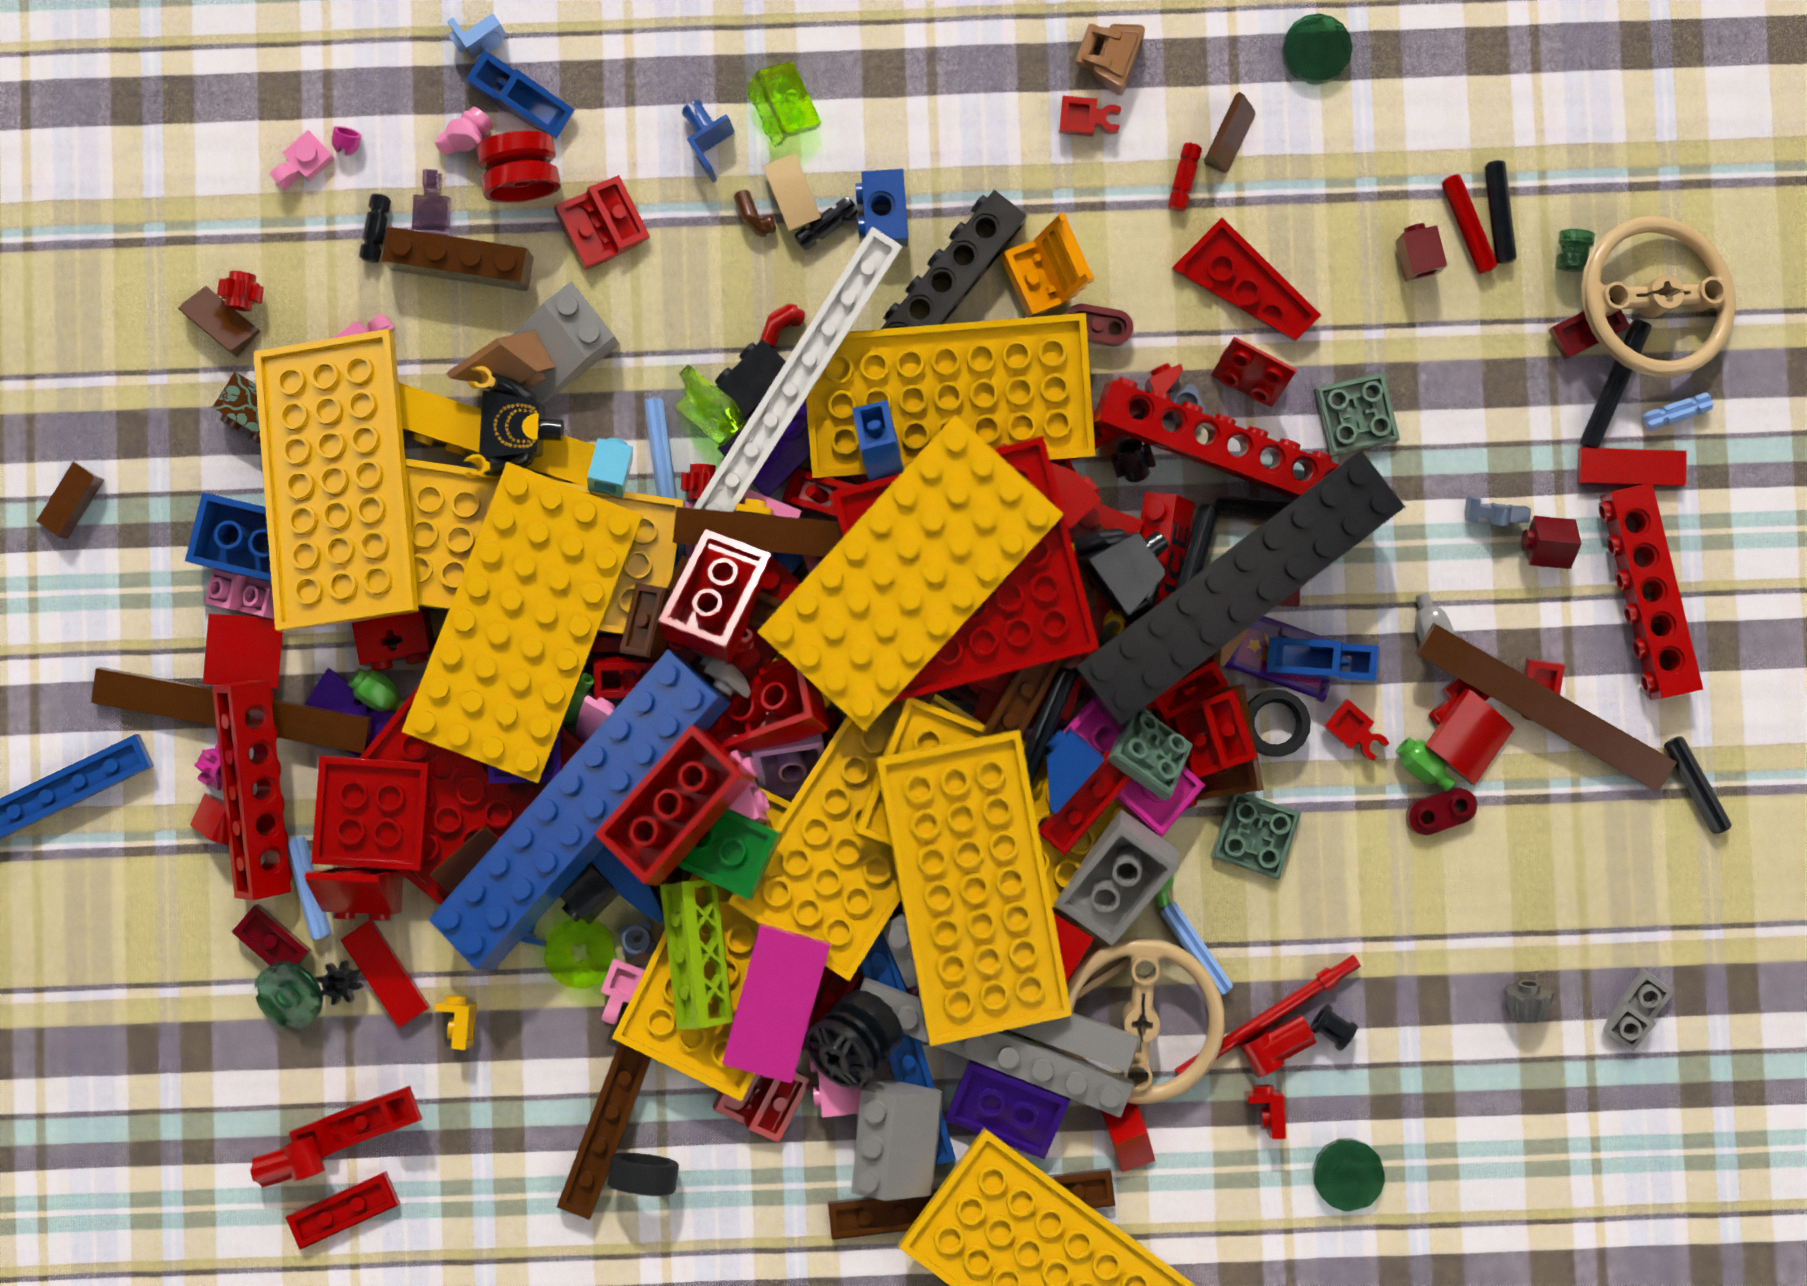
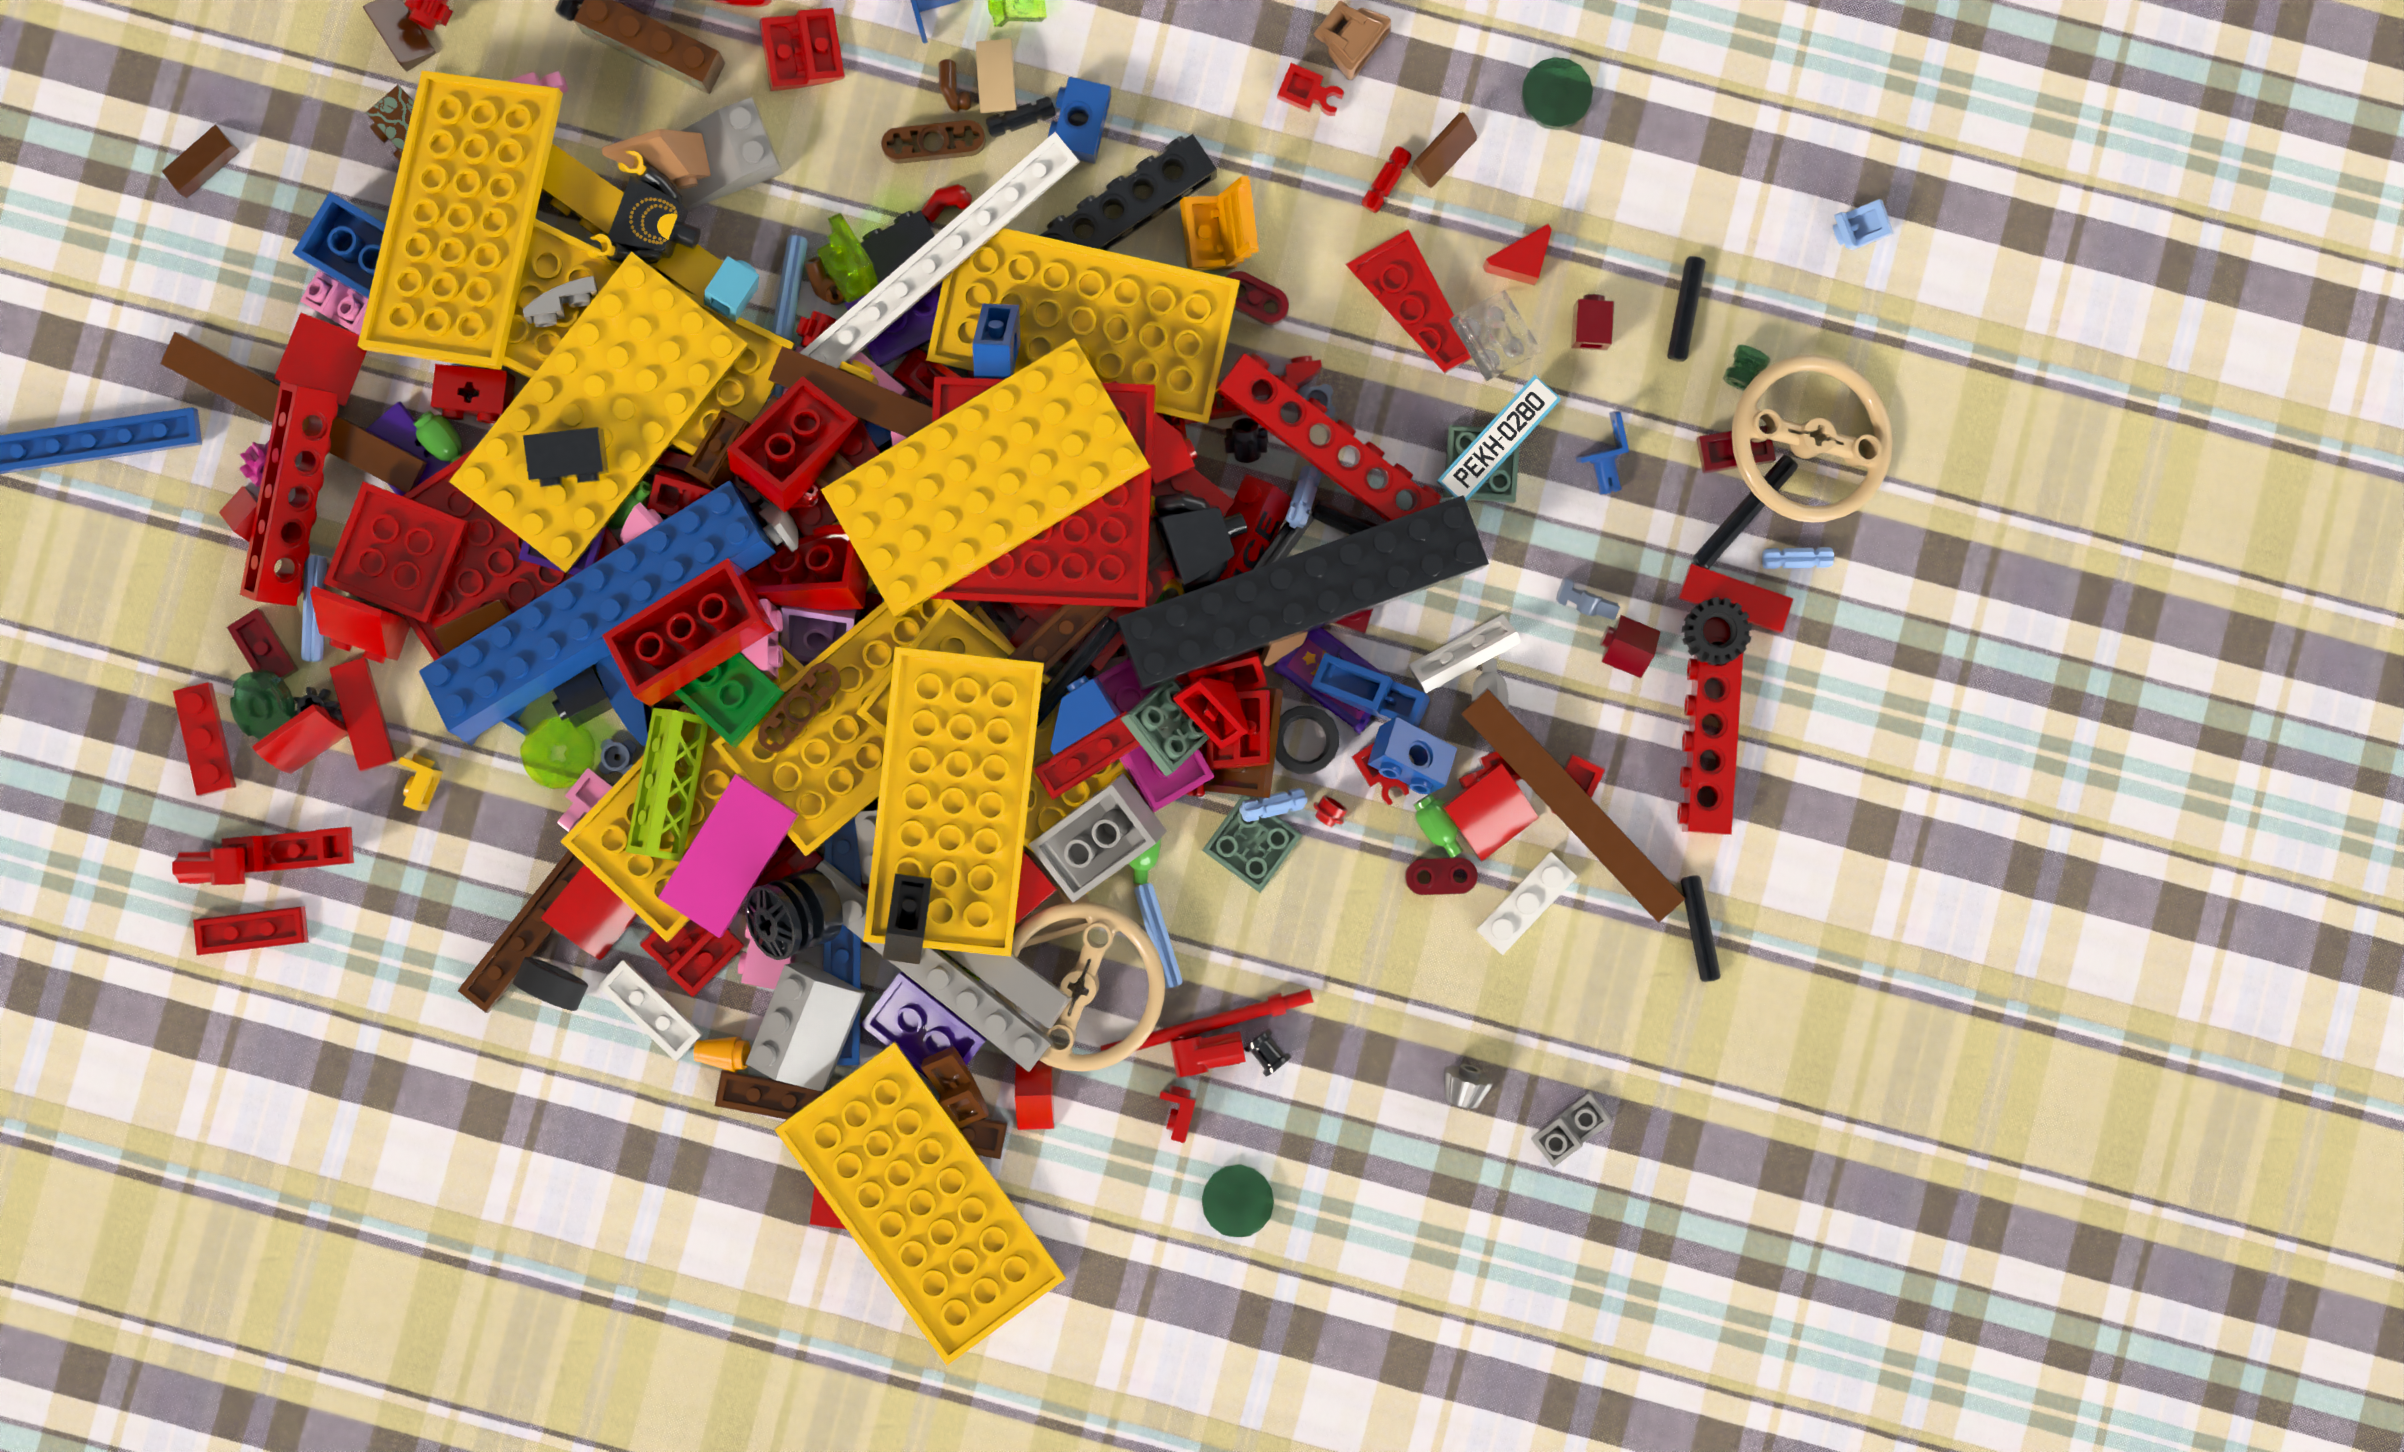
camera: 15 degrees right, 0 degrees up
(242, 1043) = (204, 739): none -> red plate
(335, 1017) = (301, 739): none -> red slope
(444, 539) = (549, 306): none -> light grey slope
(505, 674) = (566, 455): none -> black brick
(657, 1096) = (589, 914): none -> red slope
(689, 435) = (822, 283): none -> reddish brown arm
(724, 271) = (922, 131): none -> reddish brown beam
(743, 1168) = (650, 1010): none -> white plate
(819, 821) = (789, 735): none -> reddish brown beam
(825, 1187) = (724, 1053): none -> light orange cone
(967, 1013) = (907, 919): none -> black slope
(1055, 1152) = (956, 1087): none -> reddish brown slope
(1190, 723) = (1214, 709): none -> red slope
(1203, 496) = (1303, 496): none -> light blue axle
(1253, 372) = (1389, 390): red hinge -> none
(1272, 791) = (1275, 805): none -> light blue axle
(1319, 783) = (1330, 811): none -> red plate
(1334, 291) = (1495, 335): none -> clear plate
(1337, 213) = (1522, 259): none -> red slope
(1369, 387) = (1499, 439): none -> tile
(1383, 708) = (1431, 756): none -> brick
(1398, 596) = (1464, 653): none -> white plate
(1469, 224) = (1651, 311): red axle -> none
(1471, 374) = (1605, 460): none -> blue bracket
(1528, 811) = (1526, 903): none -> white plate
(1640, 84) = (1862, 225): none -> light blue bracket
(1652, 498) = (1738, 626): none -> black tyre

